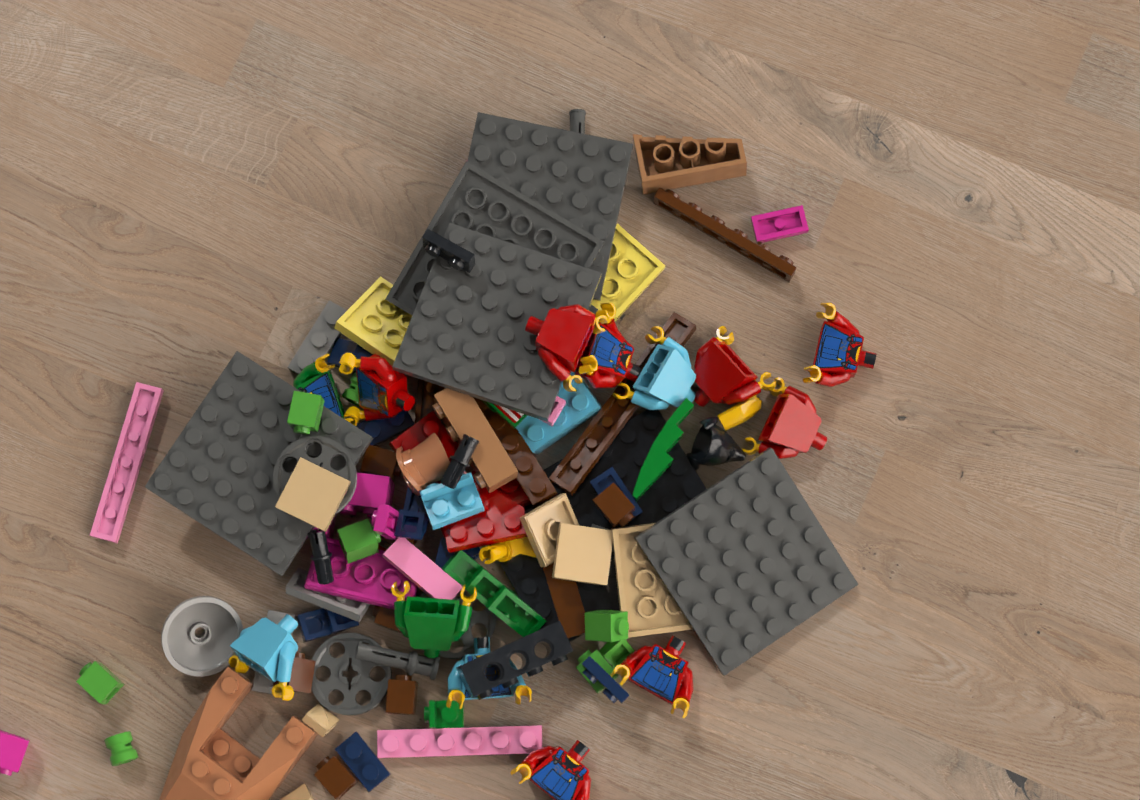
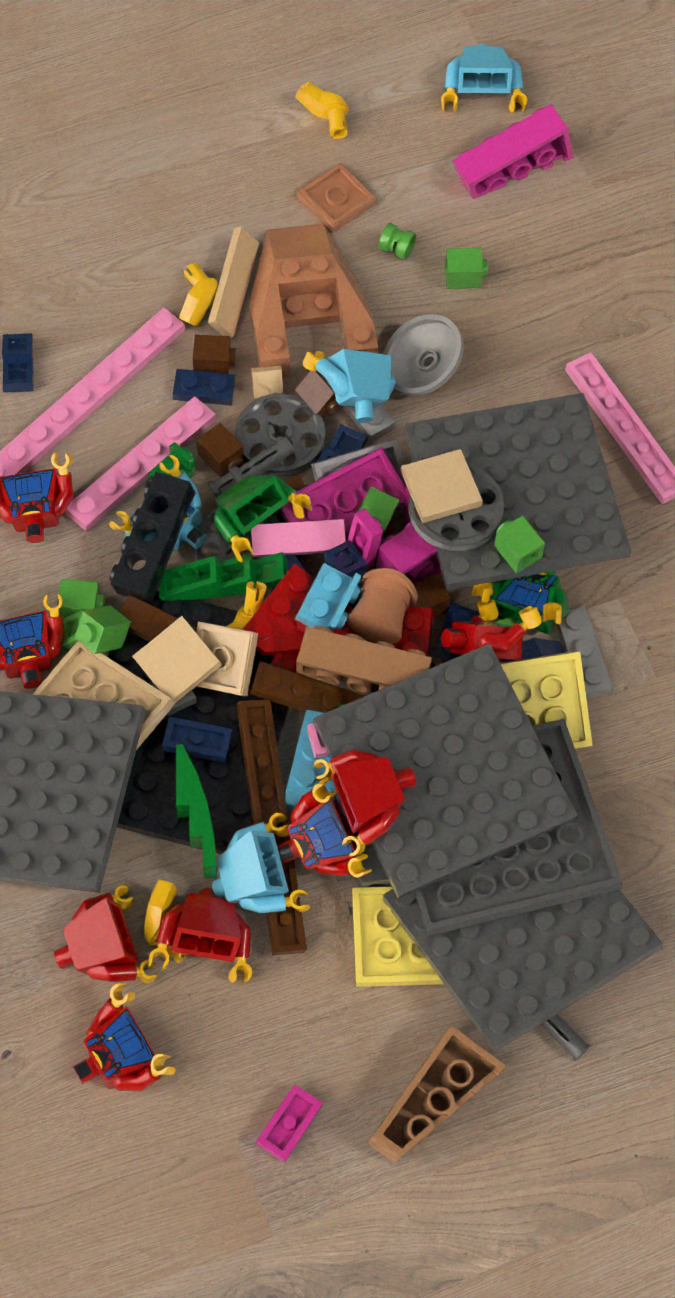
camera: 125 degrees right, 15 degrees down
(321, 556) = (388, 469): black axle -> none
(455, 255) = (559, 773): black plate -> none
(459, 461) = (352, 621): black axle -> none
(595, 673) = (69, 585): dark blue plate -> none
(614, 506) = (188, 720): reddish brown brick -> none
(714, 446) = (152, 861): black hat -> none
(716, 228) = (317, 1067): reddish brown plate -> none

